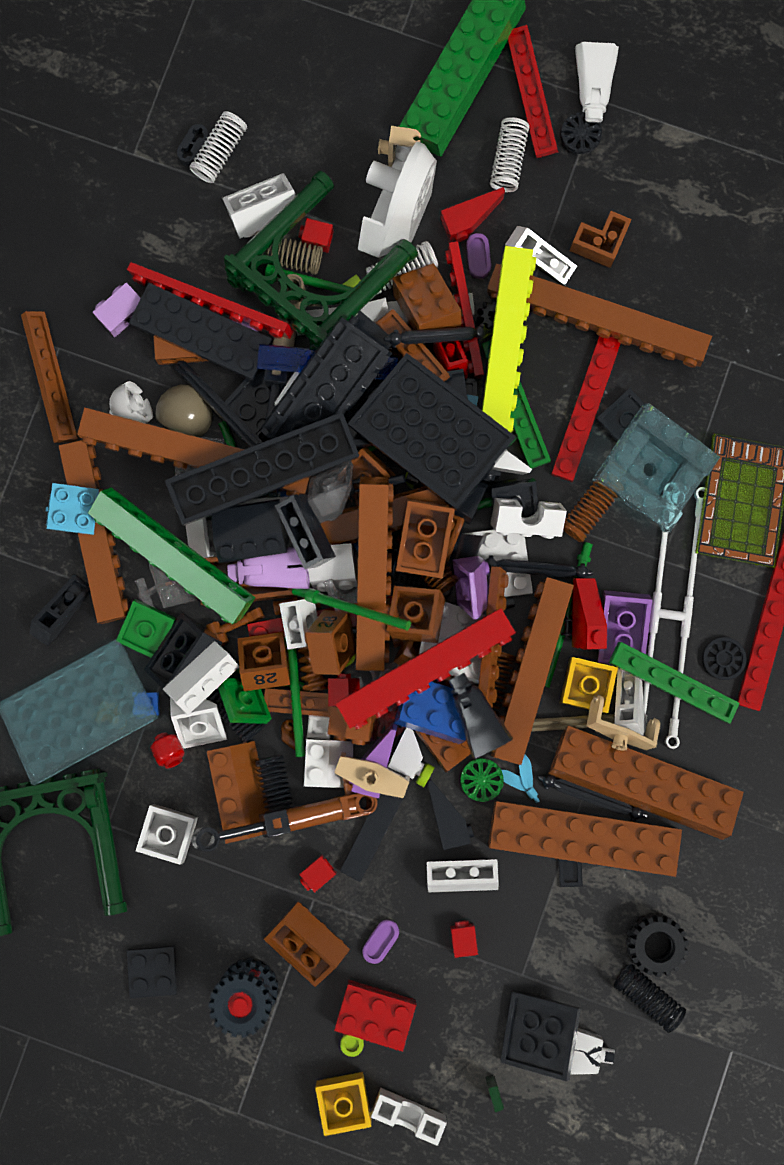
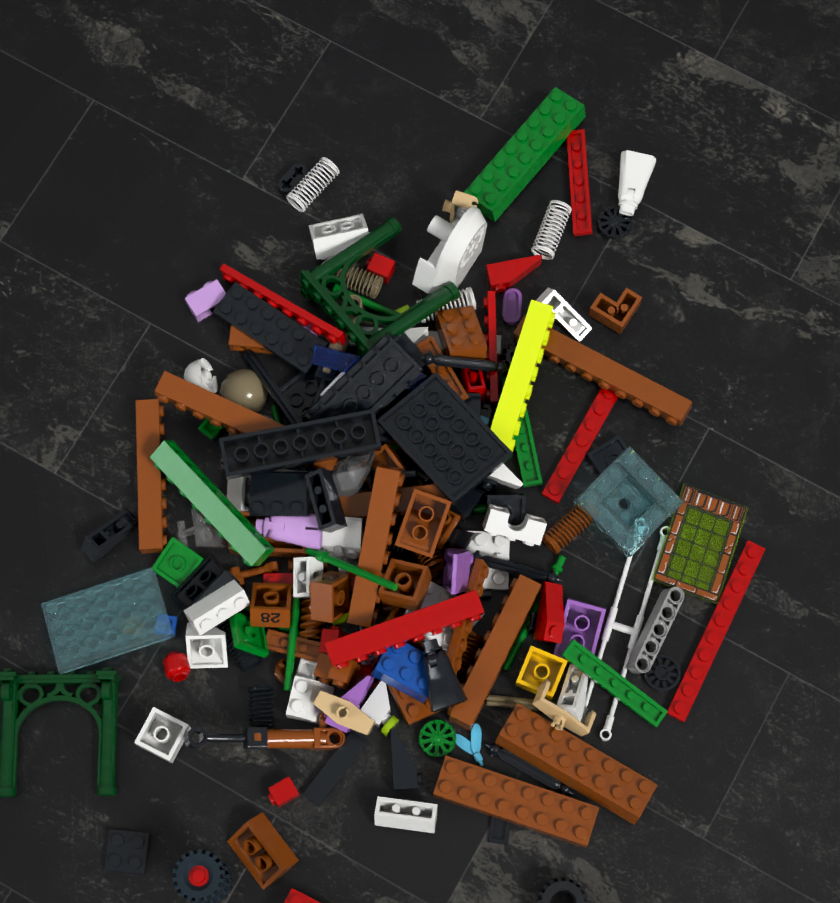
camera: 10 degrees right, 10 degrees down
(49, 376) = (138, 344): dark orange plate -> none
(70, 509) = (135, 452): medium azure plate -> none
(152, 466) = (210, 430): none -> green tile
(237, 786) = (229, 707): dark orange slope -> none
(380, 941) = (326, 860): medium lavender tile -> none
(464, 939) = (397, 870): red brick -> none
(718, 604) = (648, 635): none -> light grey beam

